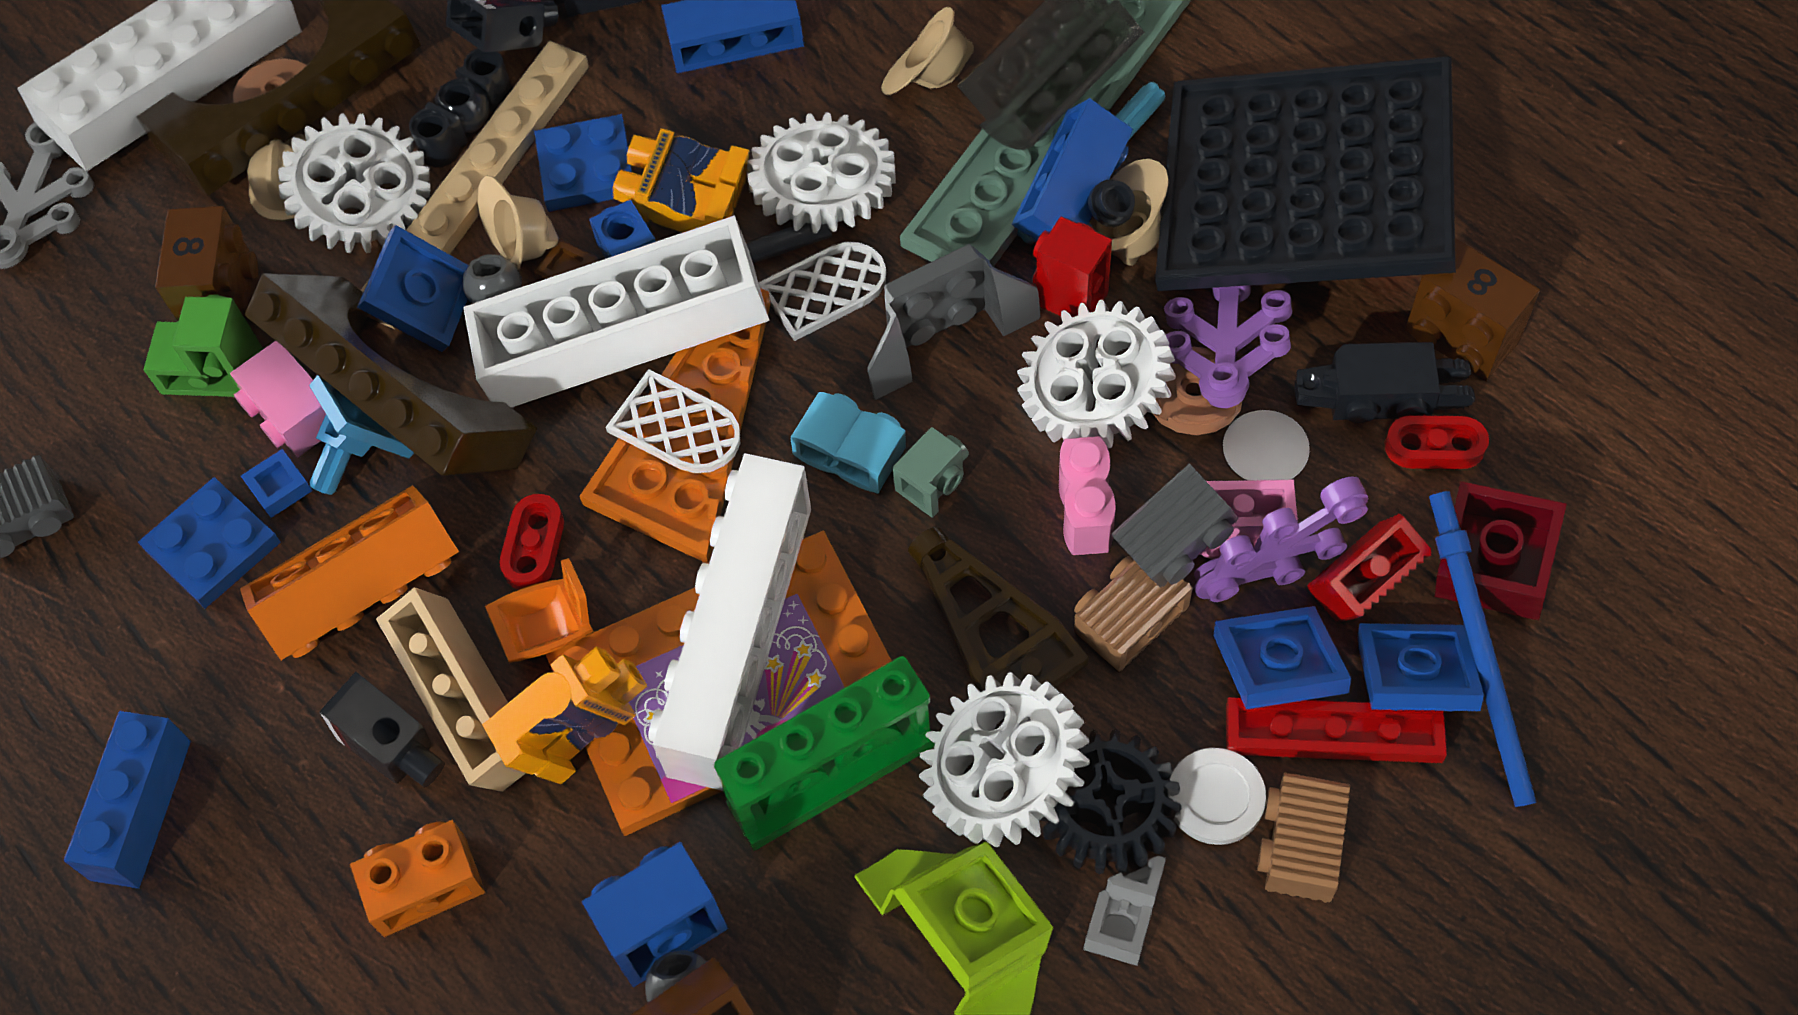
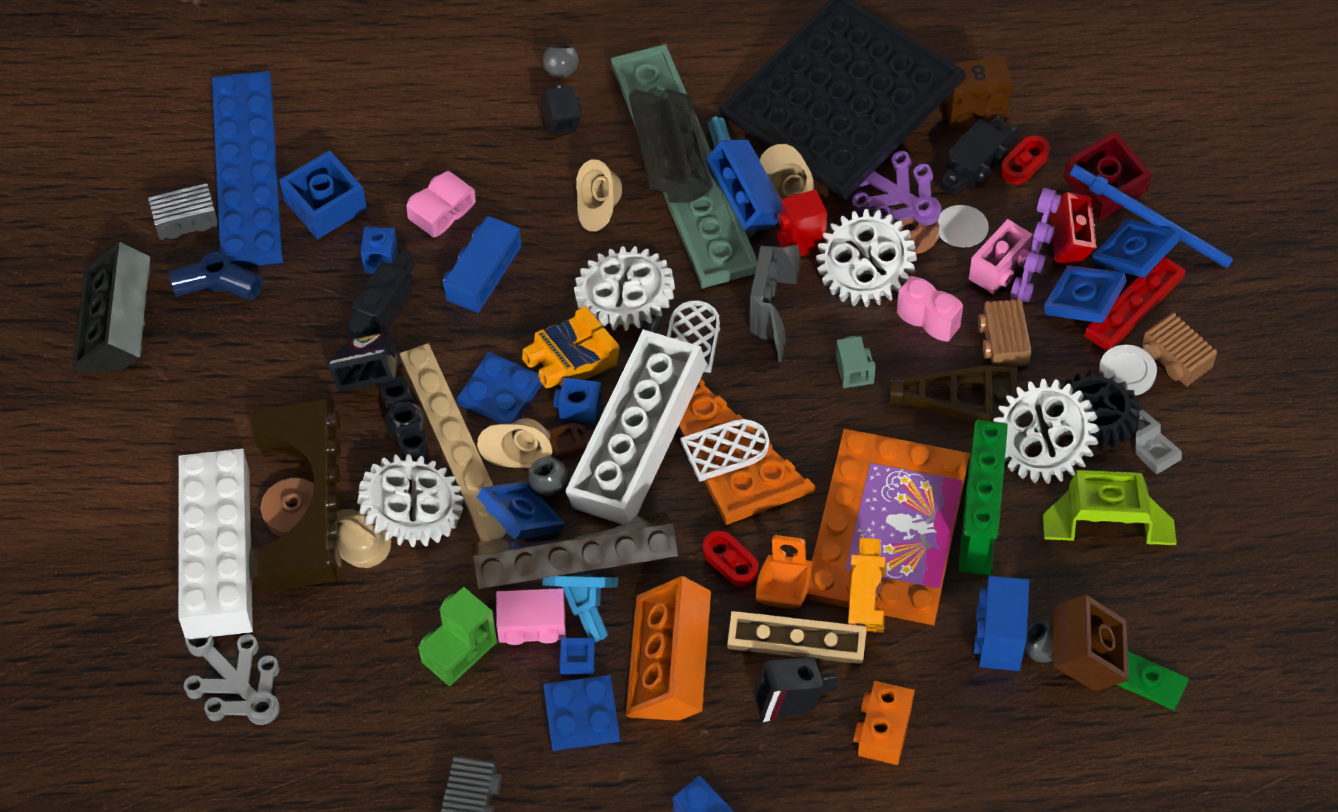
camera: 55 degrees left, 5 degrees down
(204, 257) = (405, 600): reddish brown brick -> none
(733, 620) = (881, 485): white brick -> none
(849, 441) = (803, 384): medium azure brick -> none
(1111, 203) = (782, 178): black plate -> none
(1176, 527) = (996, 276): dark grey brick -> none

